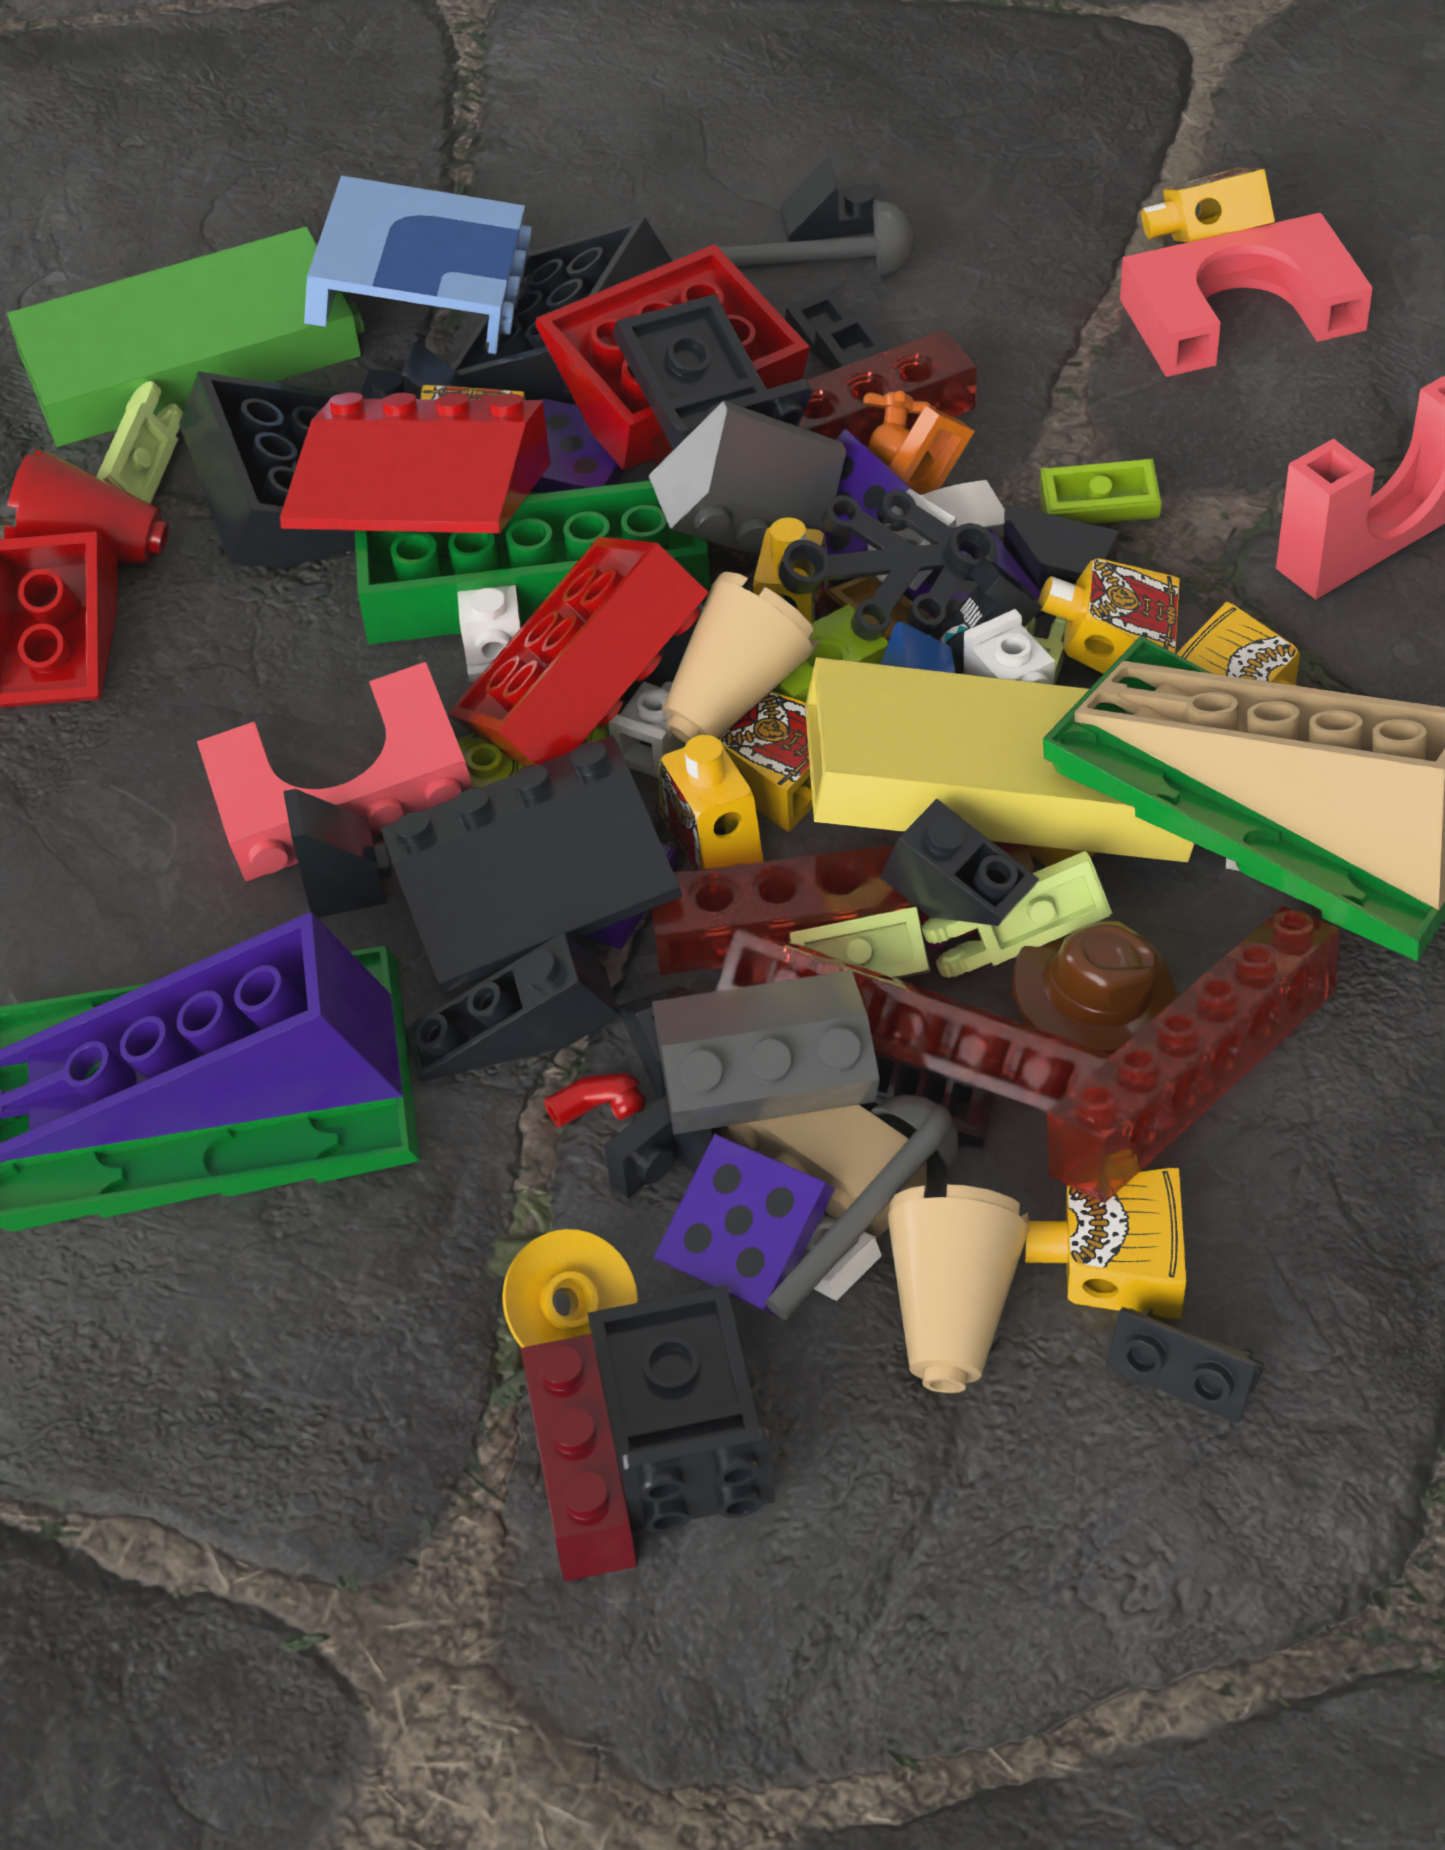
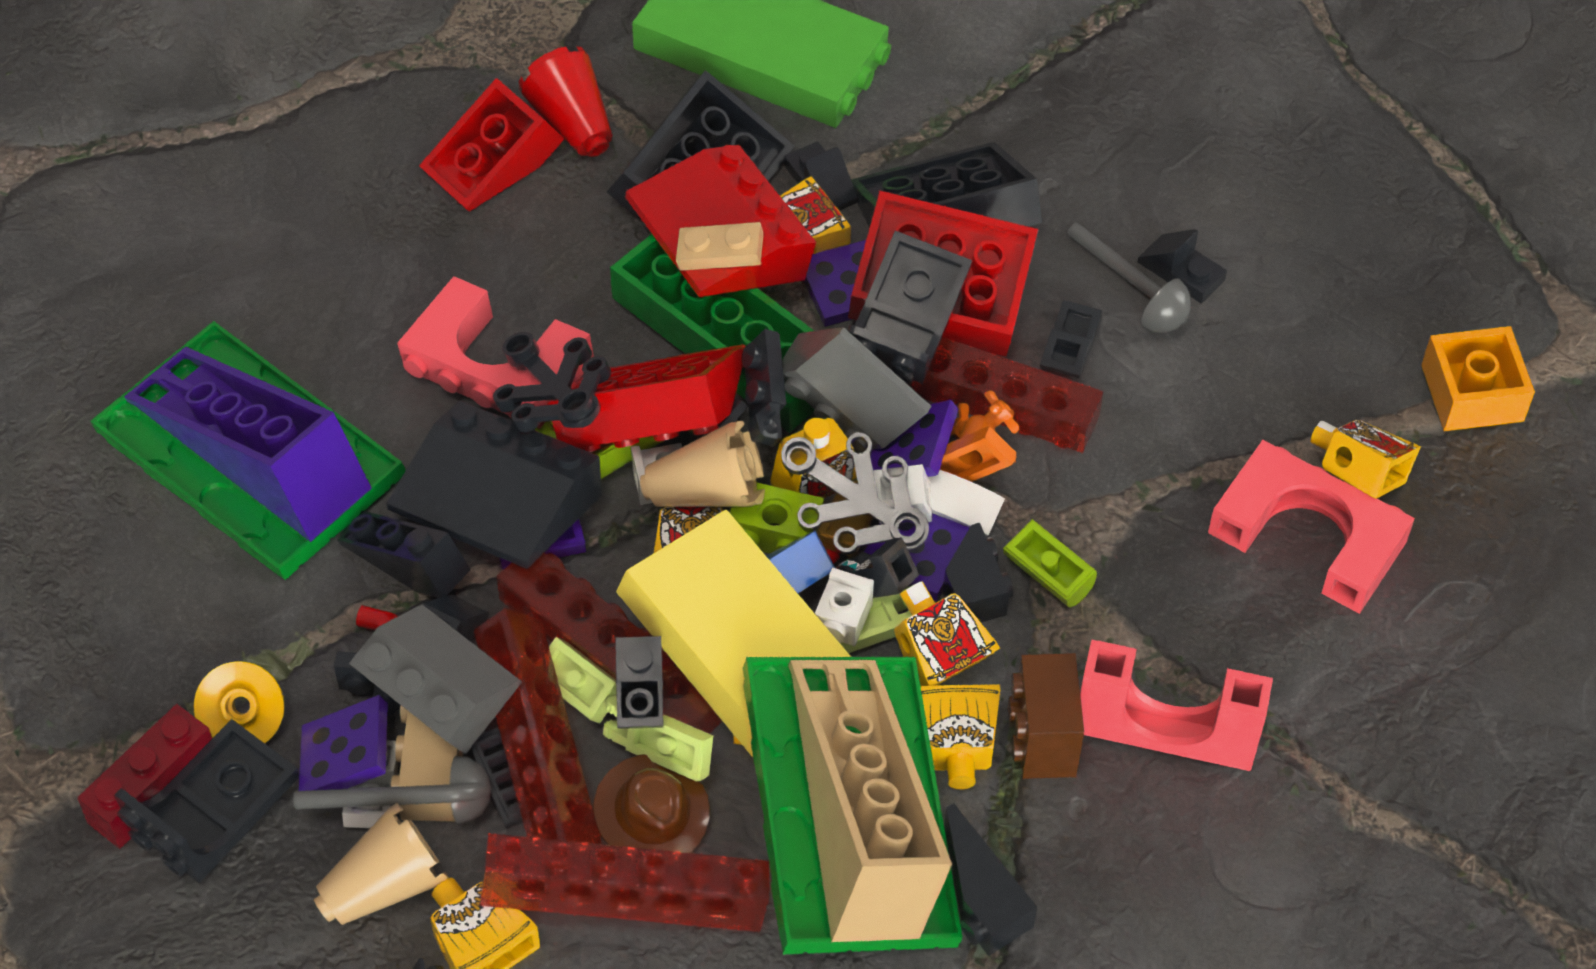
camera: 45 degrees right, 5 degrees up
(142, 444) = (648, 88): yellowish green hinge -> none
(335, 855) = (427, 386): black slope -> none
(420, 251) = (907, 98): light blue panel -> none
(466, 468) = (720, 246): none -> tan plate
(487, 624) = (660, 338): white brick -> none
(550, 697) = (575, 407): none -> black plant
(691, 541) = (764, 387): none -> black hinge
(704, 790) = (619, 529): yellow torso -> none
(1197, 92) = (1477, 378): none -> light orange brick
(1306, 582) = (1046, 716): none -> reddish brown brick

